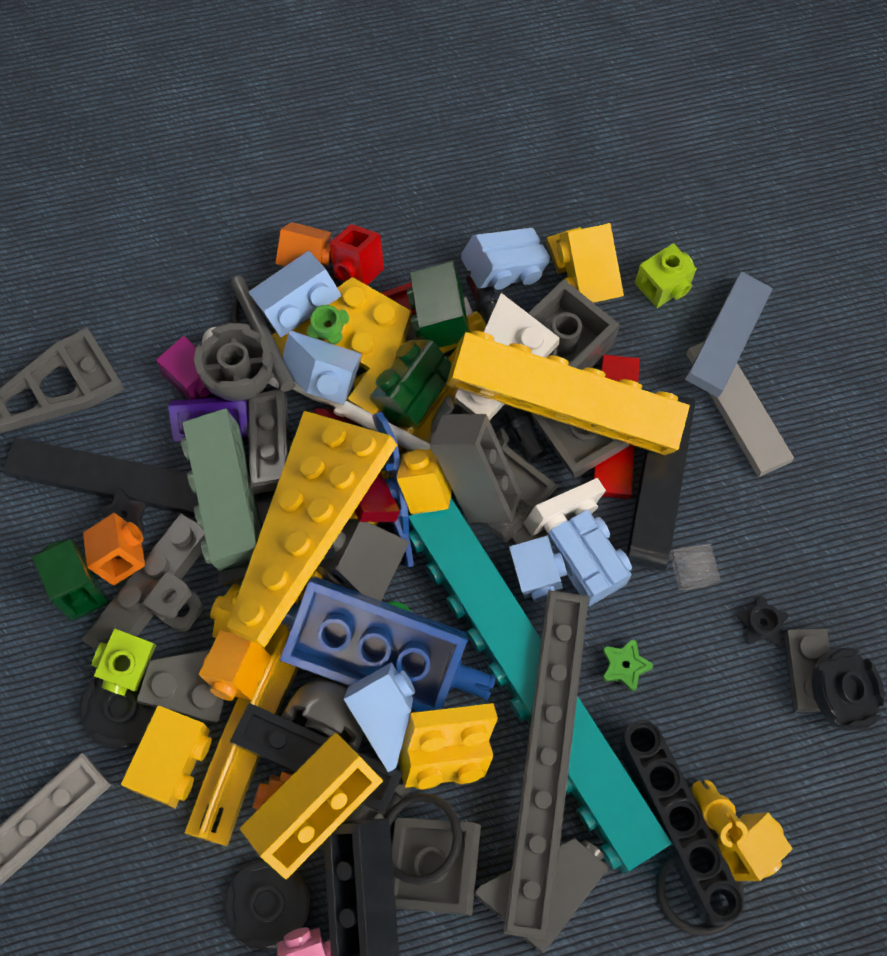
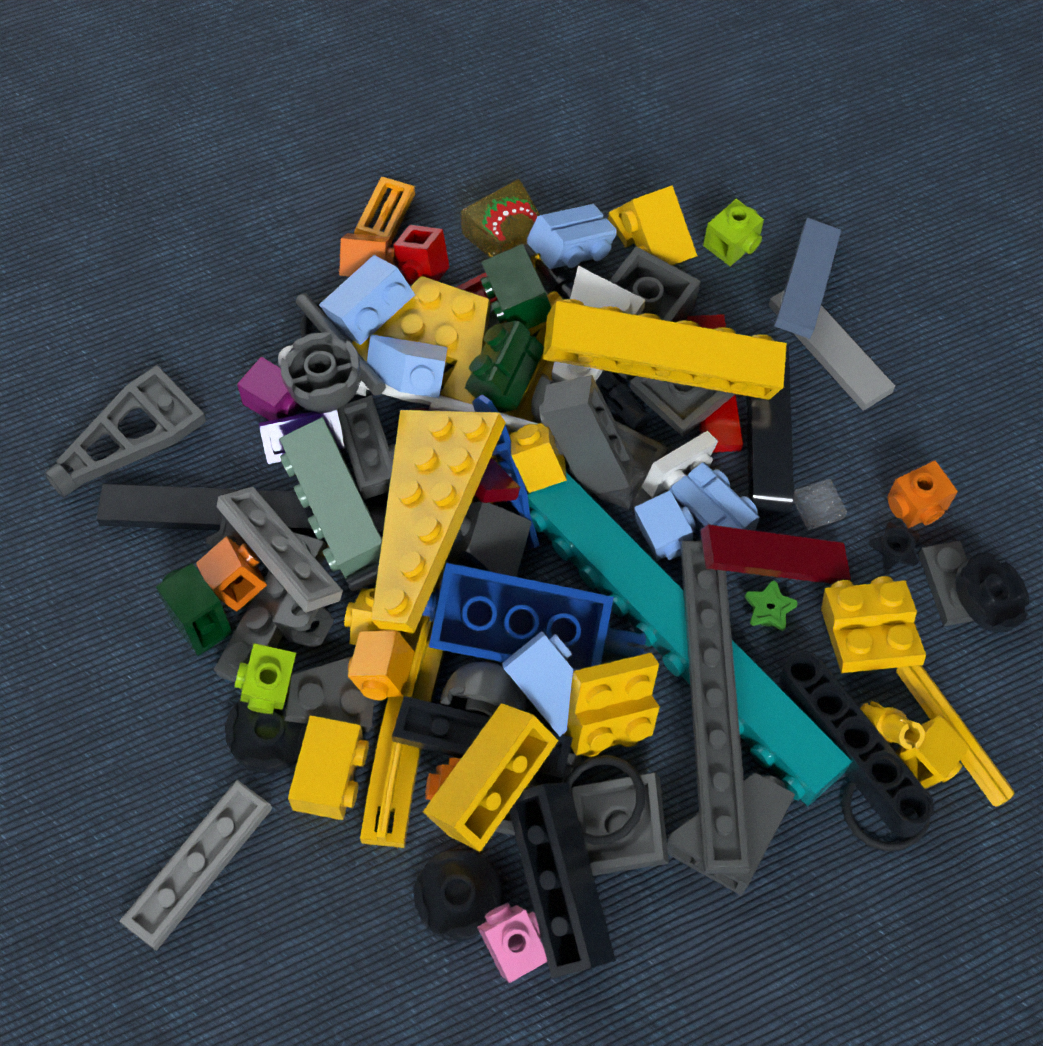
camera: 10 degrees left, 5 degrees down
(162, 534) = (279, 549): none -> light grey tile
(327, 314) = (405, 313): bright green plate -> none
(345, 210) = (374, 202): none -> light orange tile
(442, 232) = (501, 221): none -> clear yellow torso
(637, 617) = (774, 554): none -> dark red tile
(722, 703) = (872, 625): none -> yellow plate
(772, 801) = (975, 759): none -> yellow axle
(797, 576) = (921, 495): none -> orange brick

